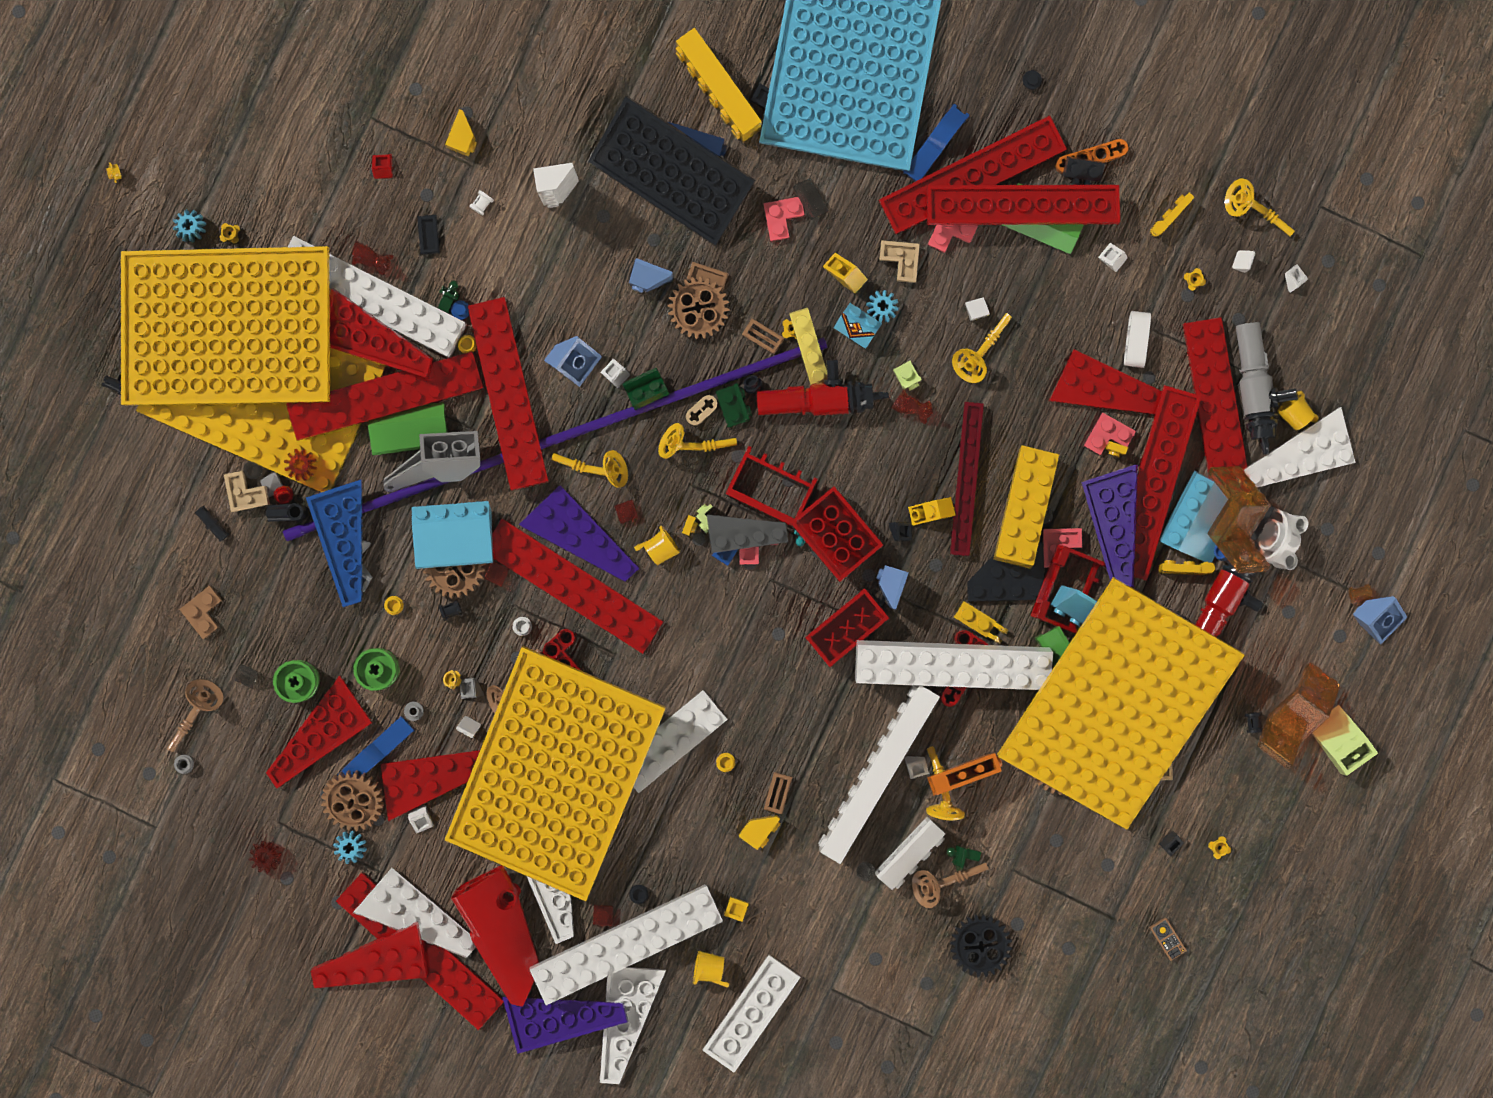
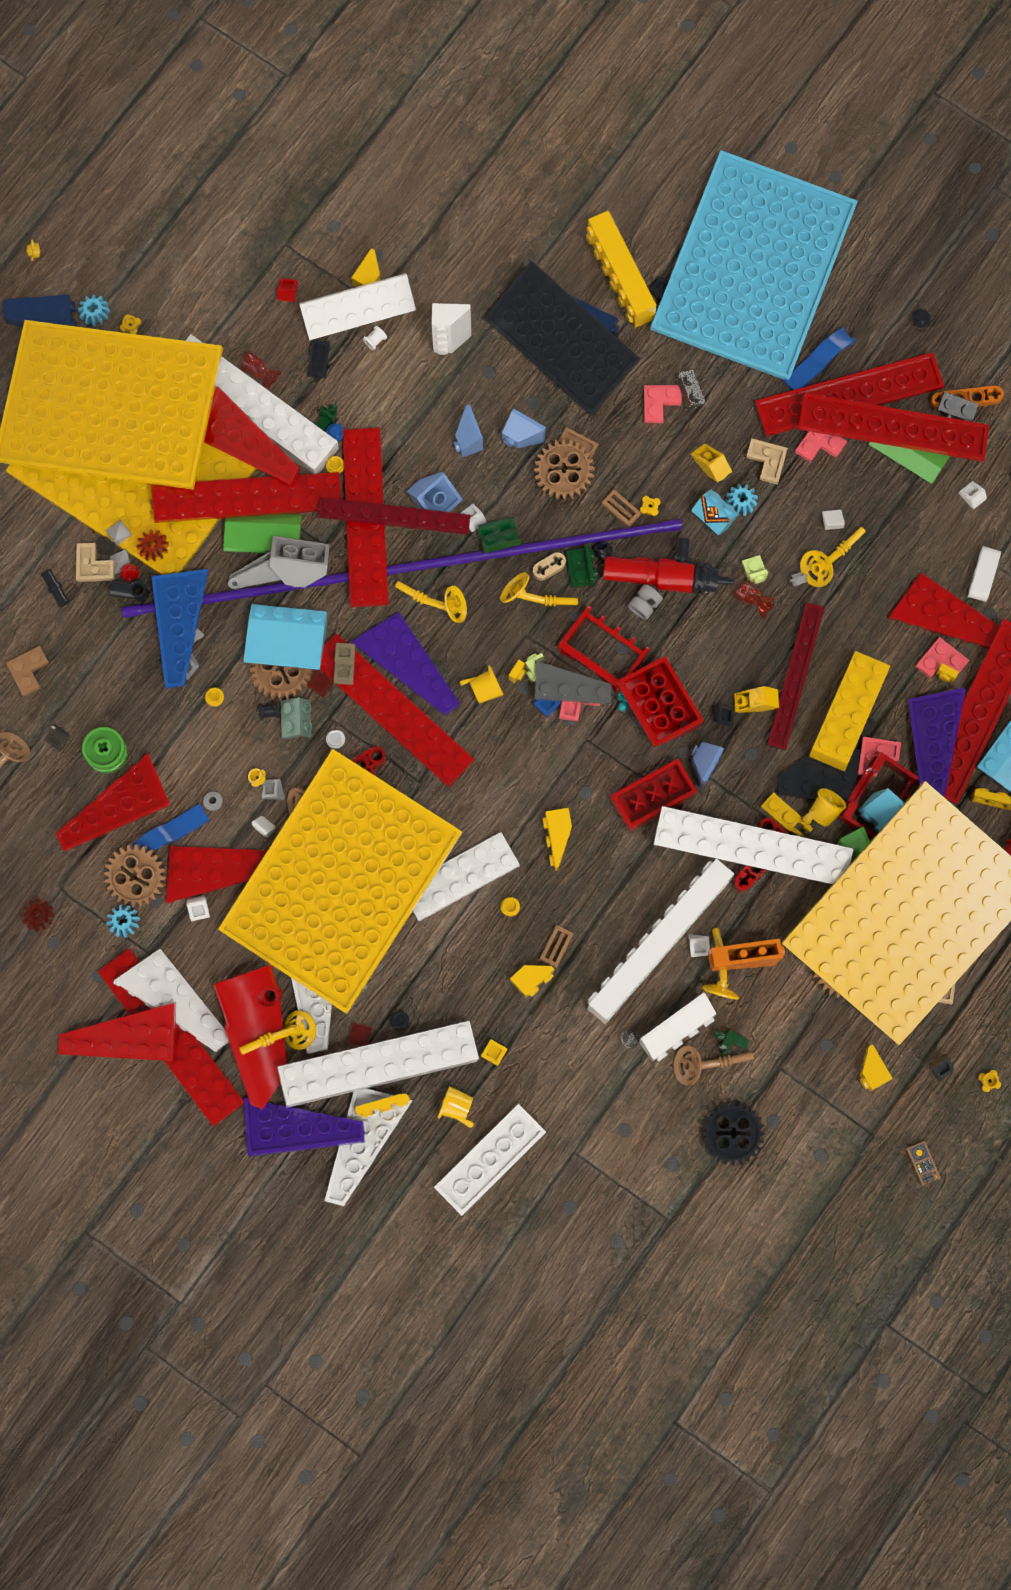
camera: 10 degrees right, 10 degrees down
(137, 236) = (41, 309): none -> dark blue slope
(263, 456) = (118, 533): none -> light grey slope
(365, 669) = (184, 741): bright green wheel -> none
(457, 173) = (357, 306): none -> white plate
(479, 612) = (296, 718): none -> sand green bracket
(516, 550) = (344, 663): none -> dark tan slope
(534, 926) = (288, 1030): none -> yellow dish
(536, 390) = (394, 516): none -> dark red plate
(594, 289) = (468, 434): none -> medium blue slope
(626, 511) = (458, 648): clear red plate -> none
(638, 982) = (383, 1105): none -> yellow hinge
(760, 679) = (559, 830): none -> yellow slope
(804, 431) = (645, 602): none -> light grey wheel
(809, 346) = (664, 521): light yellow plate -> none
(953, 378) = (798, 579): none -> light grey plate
(1018, 609) = (825, 808): none -> yellow hat
(1106, 859) = (873, 1070): none -> yellow slope

